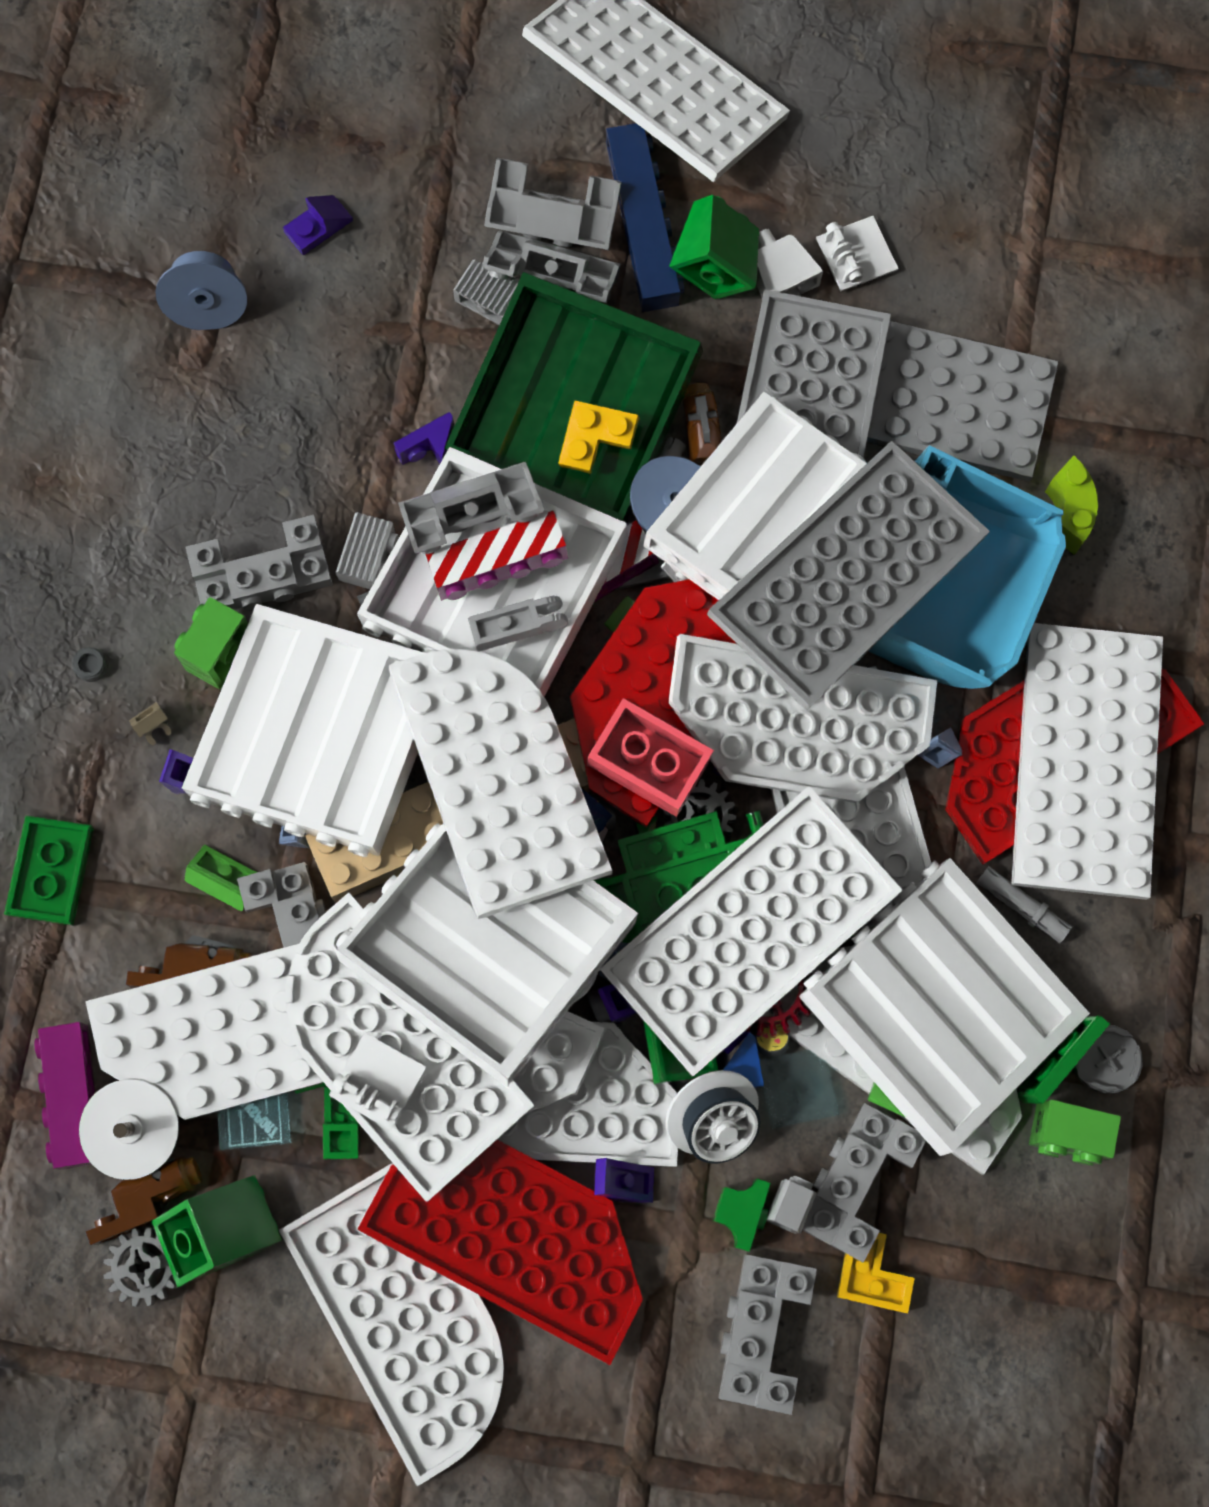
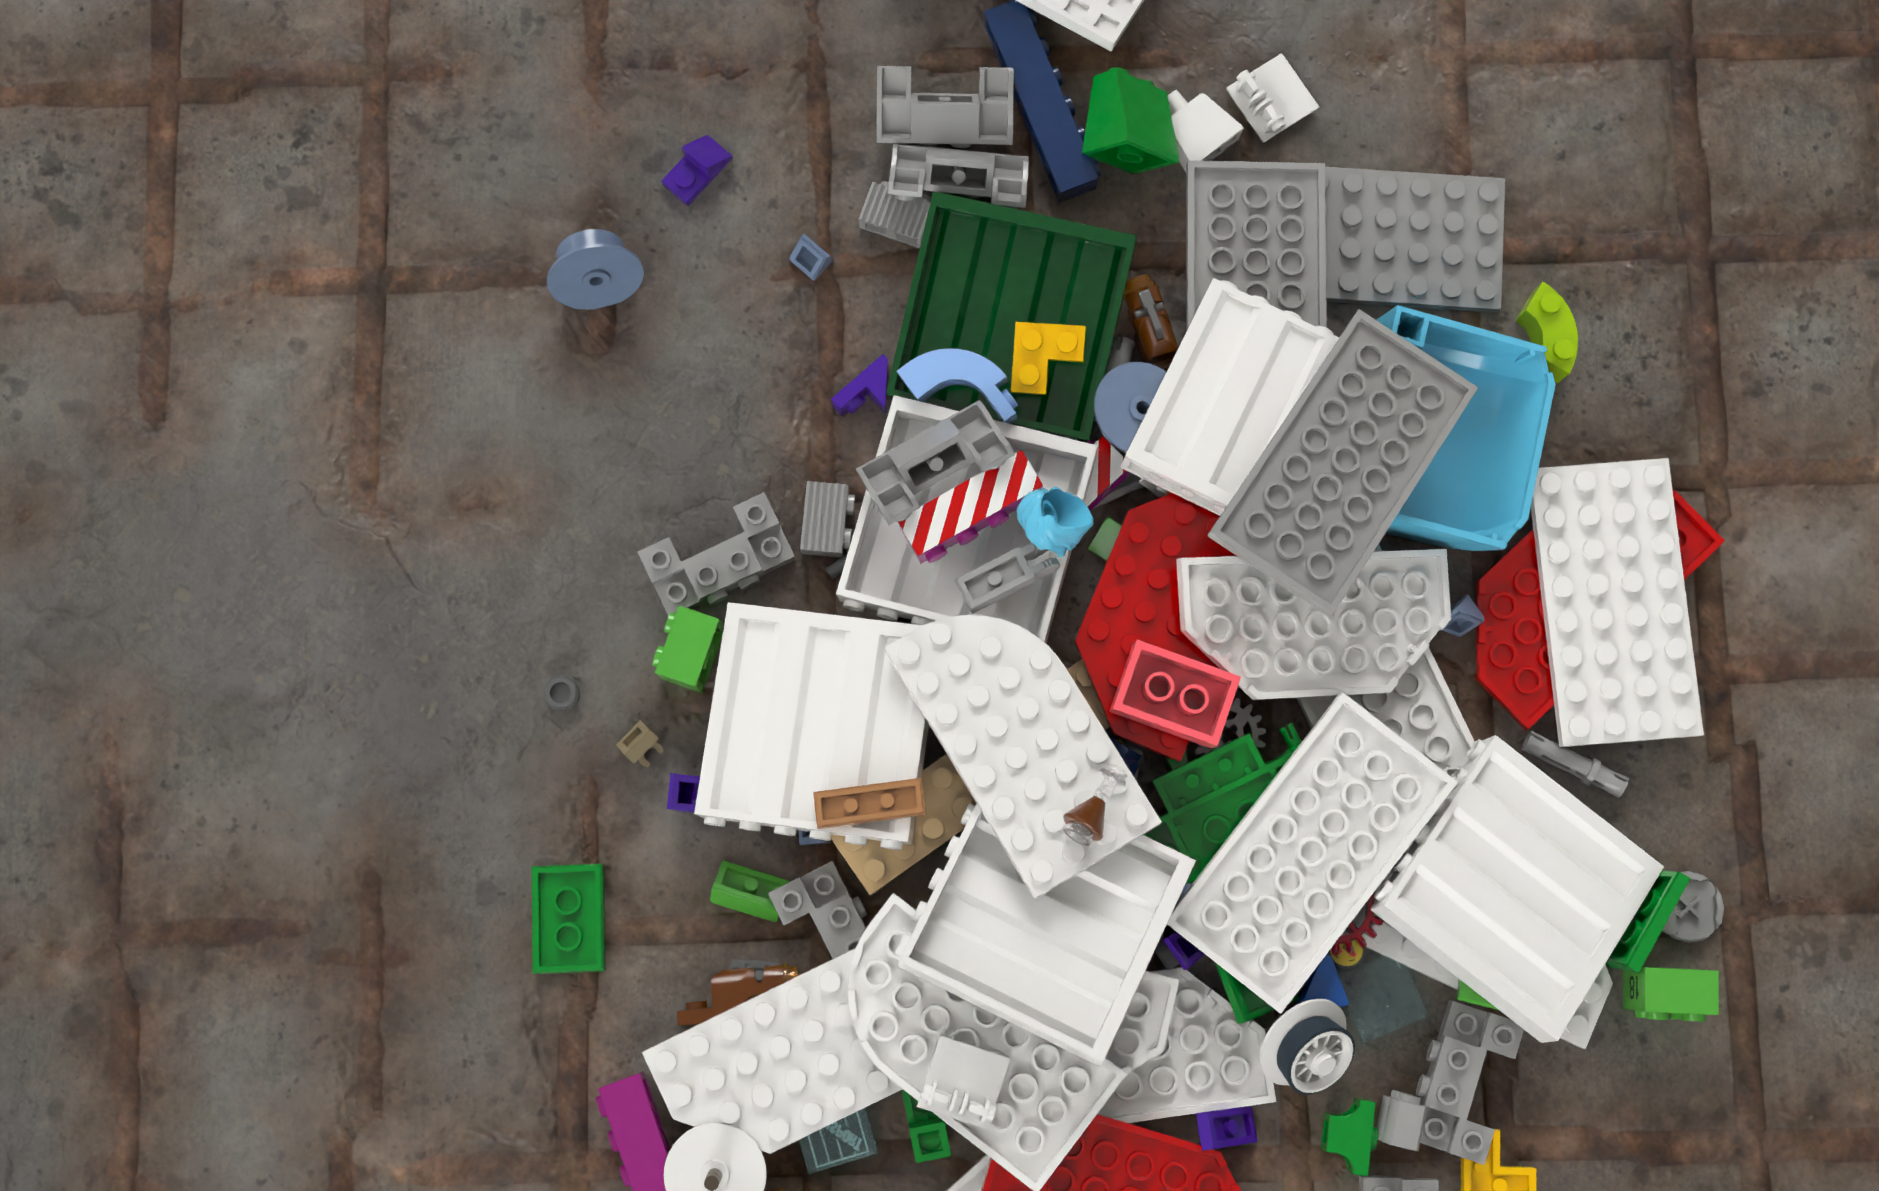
camera: 10 degrees left, 5 degrees up
(344, 805) = (869, 803): none -> medium nougat tile
(403, 318) = (810, 257): none -> sand blue slope
(504, 430) = (952, 367): none -> light blue arch
(538, 851) = (1086, 820): none -> piece
(568, 577) = (1054, 519): none -> medium azure hair

